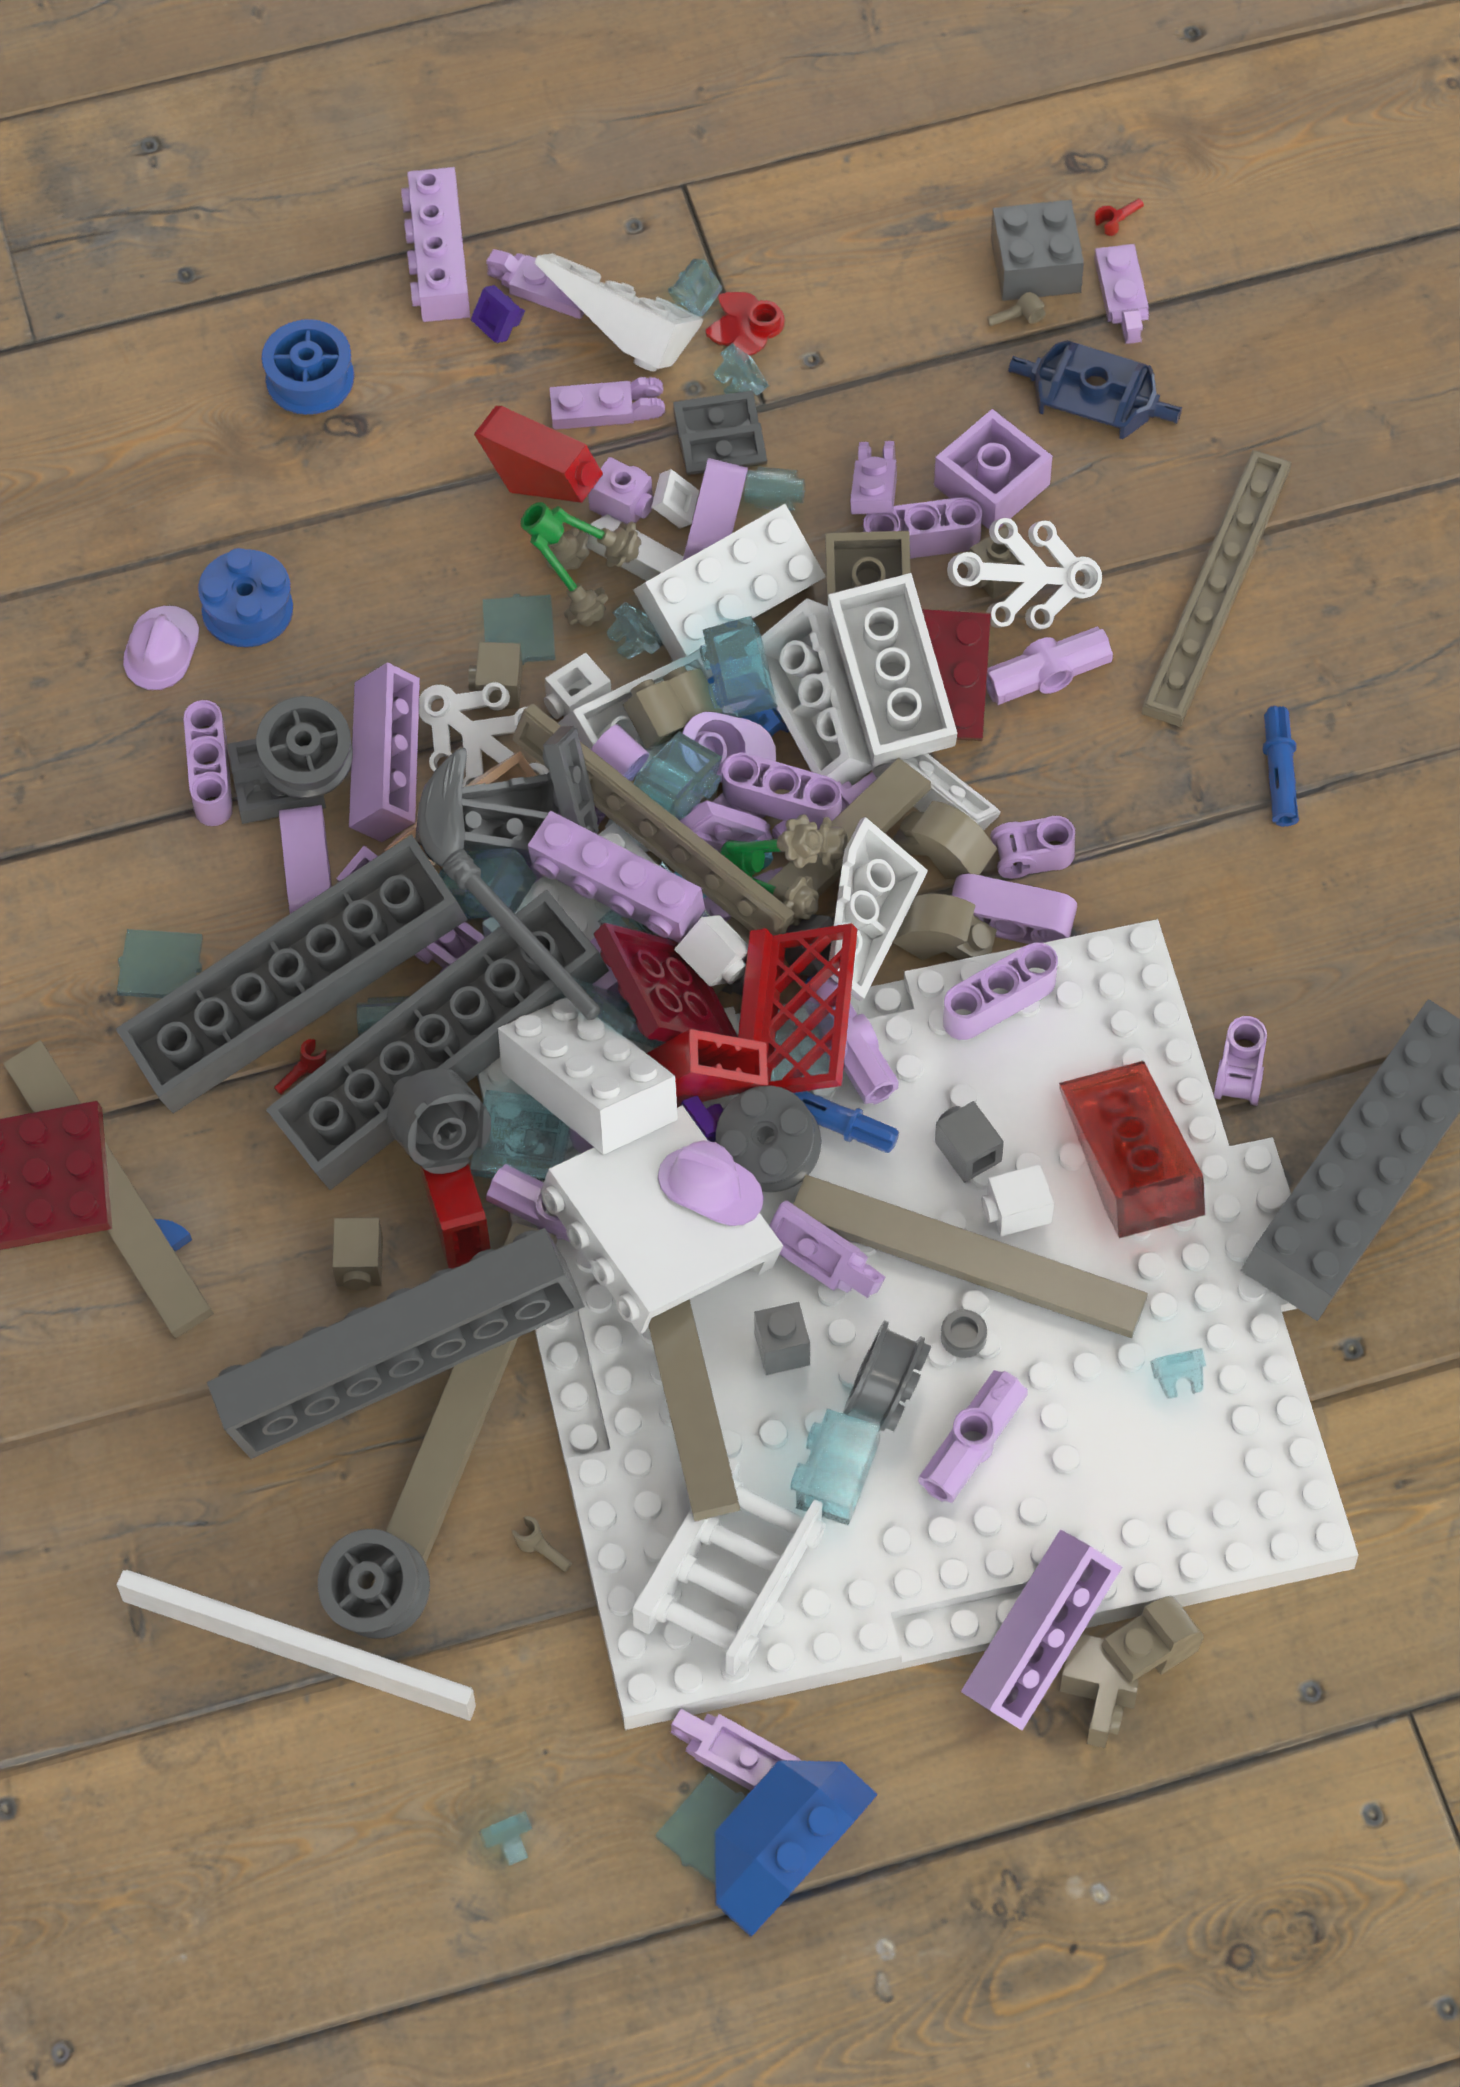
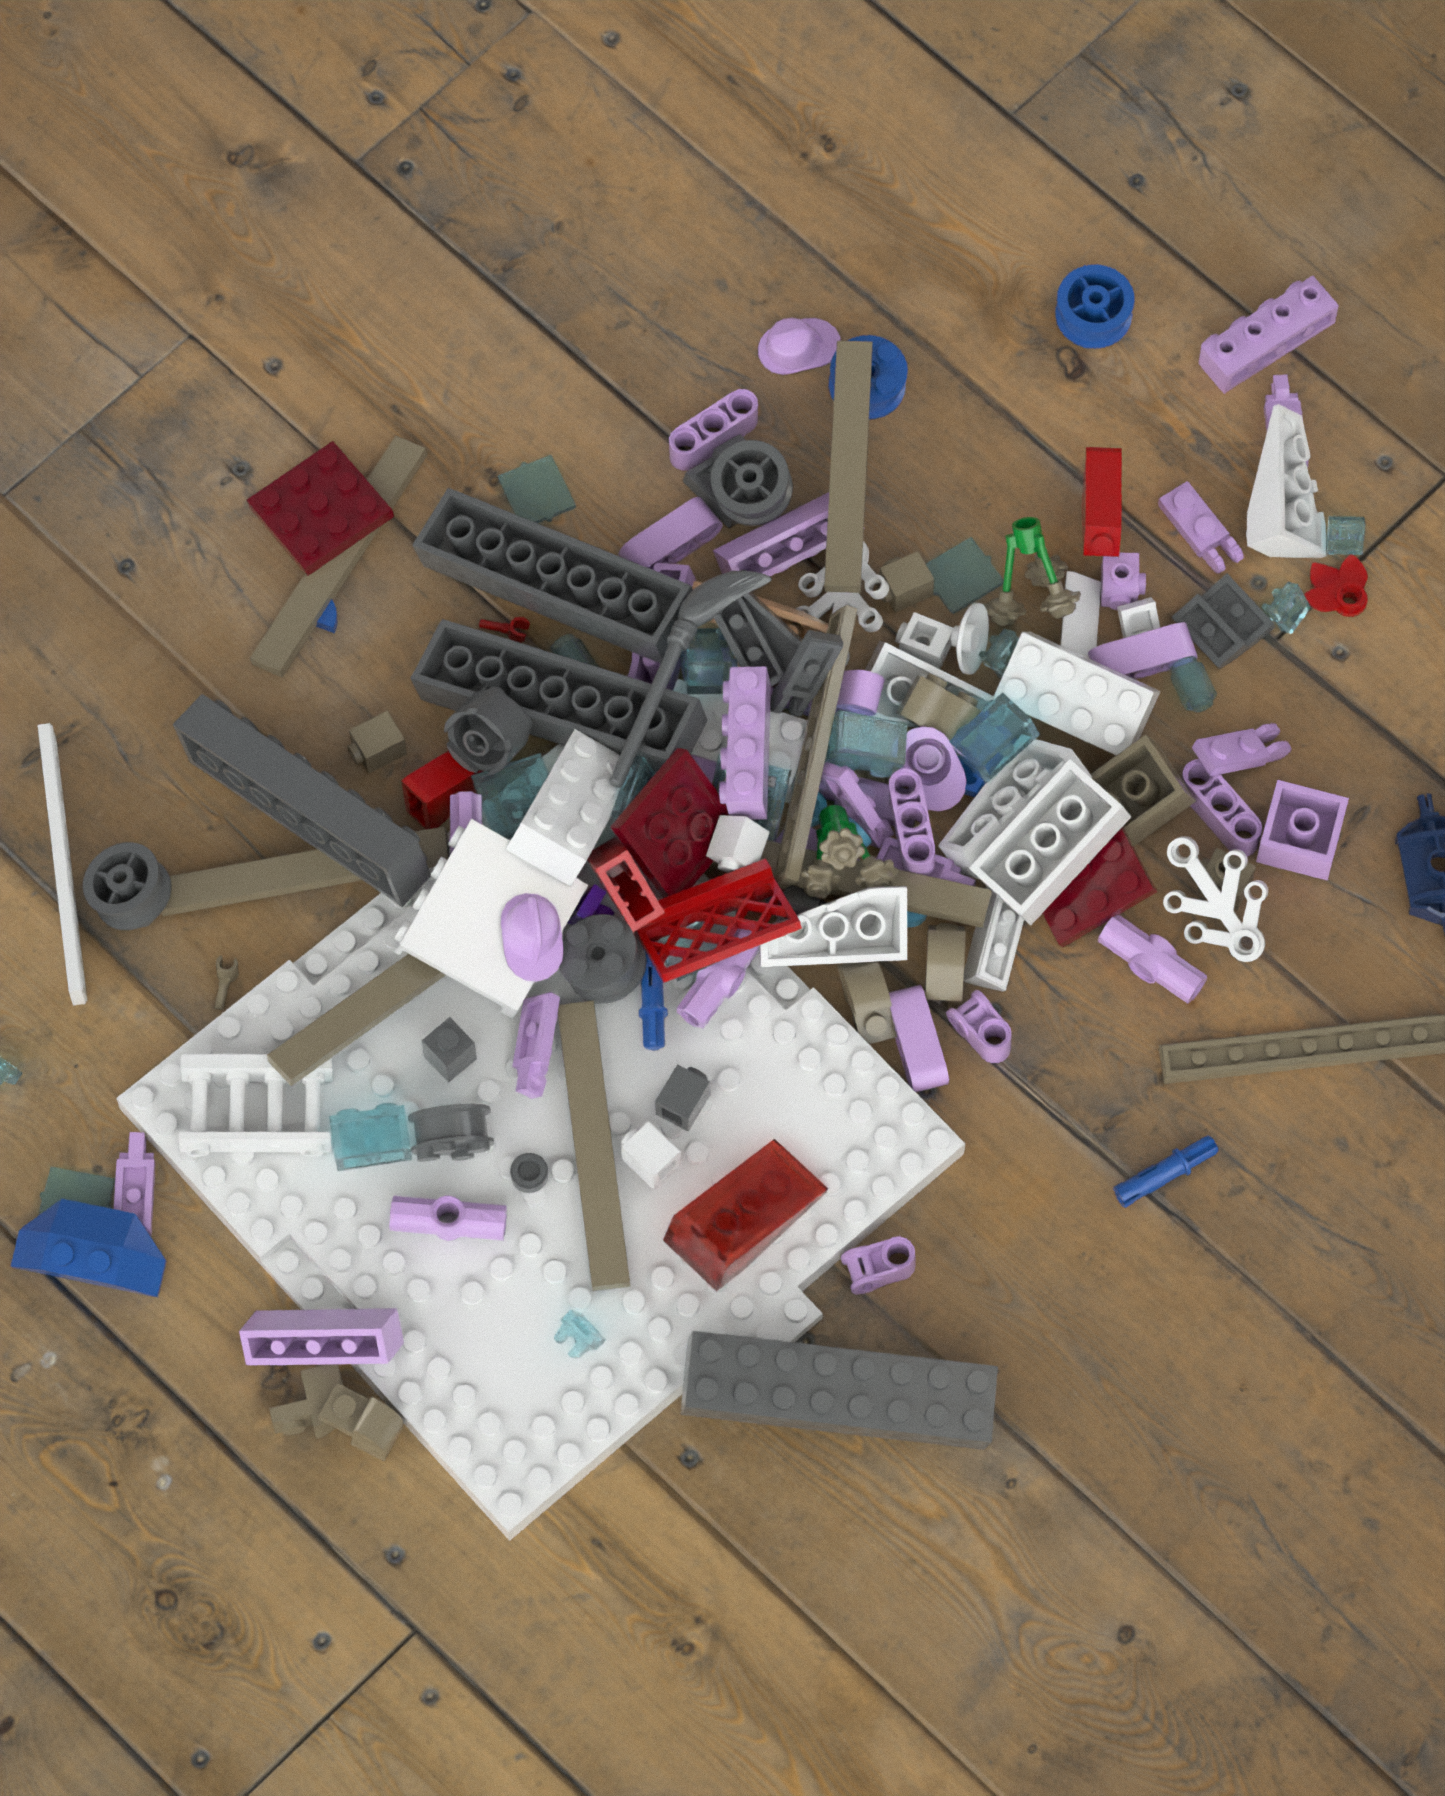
camera: 60 degrees right, 5 degrees up
(353, 647) = (848, 467): none -> dark tan tile
(496, 314) = (1228, 409): dark purple tile -> none
(602, 647) = (971, 638): none -> white dish
(992, 1008) = (814, 1042): lavender beam -> none

